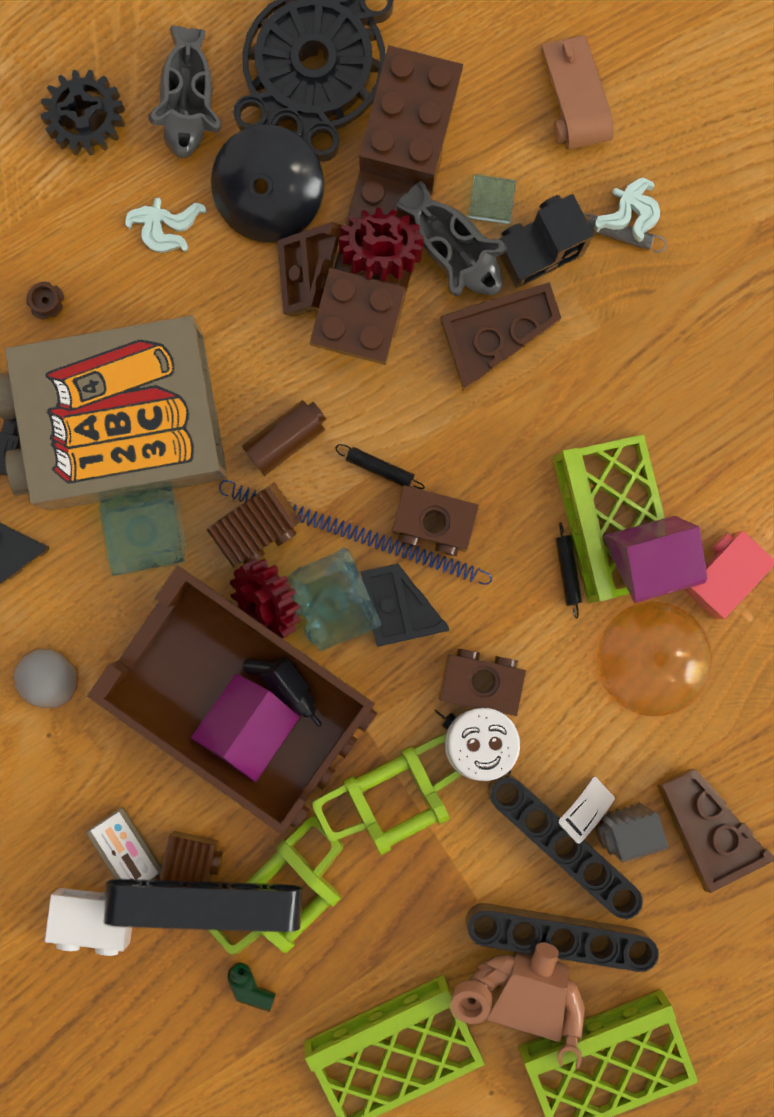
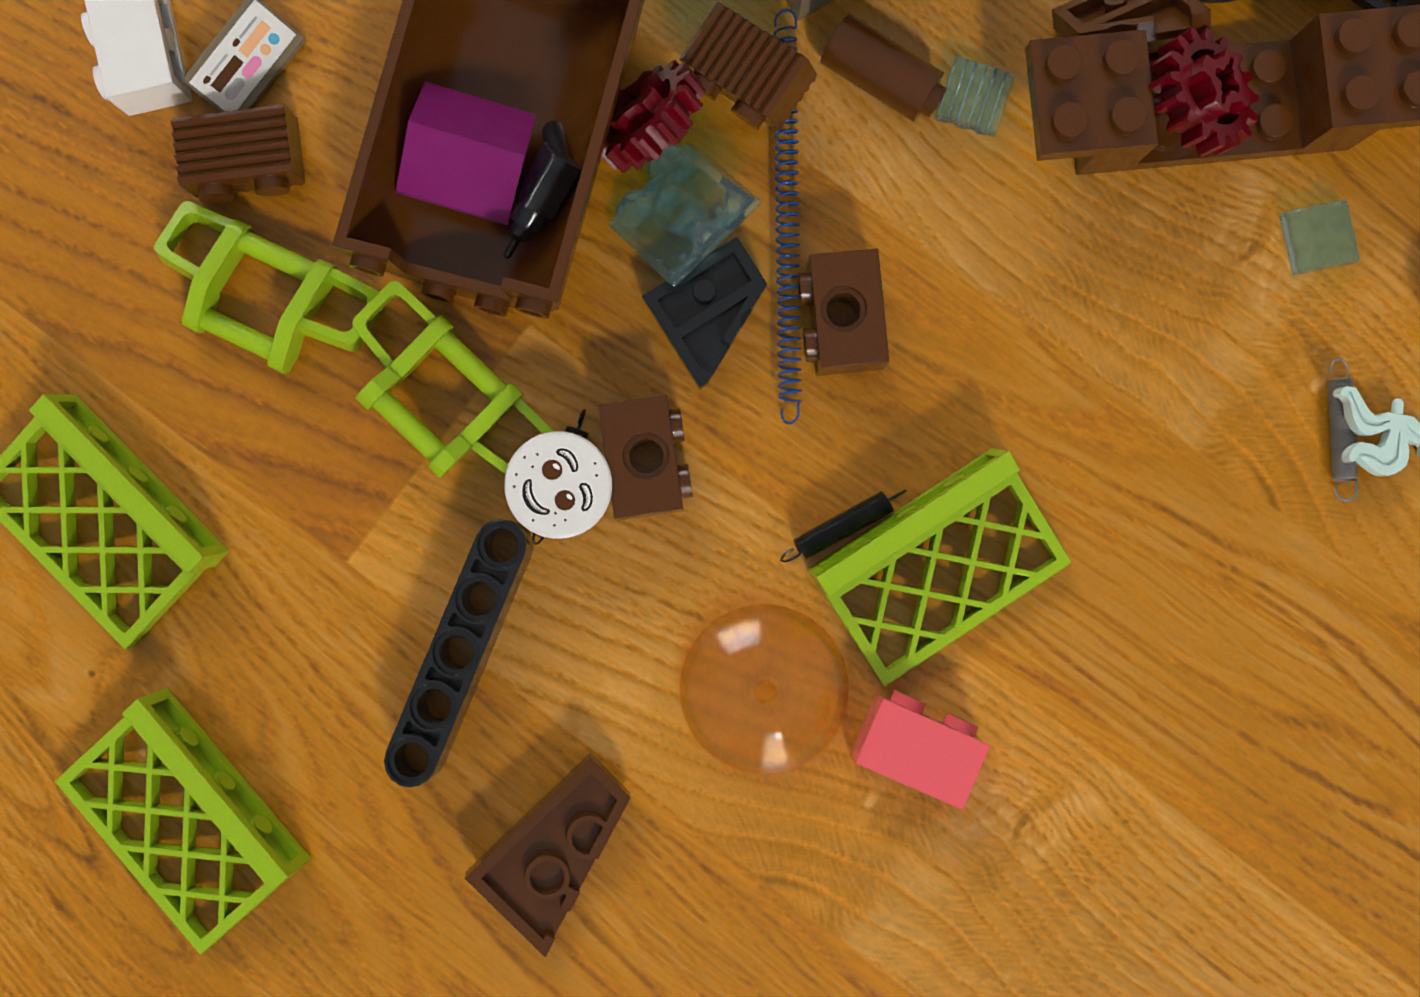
camera: 75 degrees right, 0 degrees up
(202, 905) = (200, 175): black beam -> none
(246, 990) = (118, 288): dark green arm -> none
(321, 383) = (975, 96): none -> clear light blue piece
(379, 467) = (890, 214): black piece -> none
(455, 243) = (1241, 201): dark grey animal -> none
(497, 329) = (1142, 307): reddish brown wing -> none
(527, 995) = (231, 676): nougat torso -> none
(548, 243) = (1292, 331): black brick -> none
(575, 949) = (319, 717): black beam -> none
(586, 810) = (518, 665): white sticker -> none
(632, 832) = (507, 736): dark grey brick -> none
(658, 557) = (907, 639): magenta slope -> none

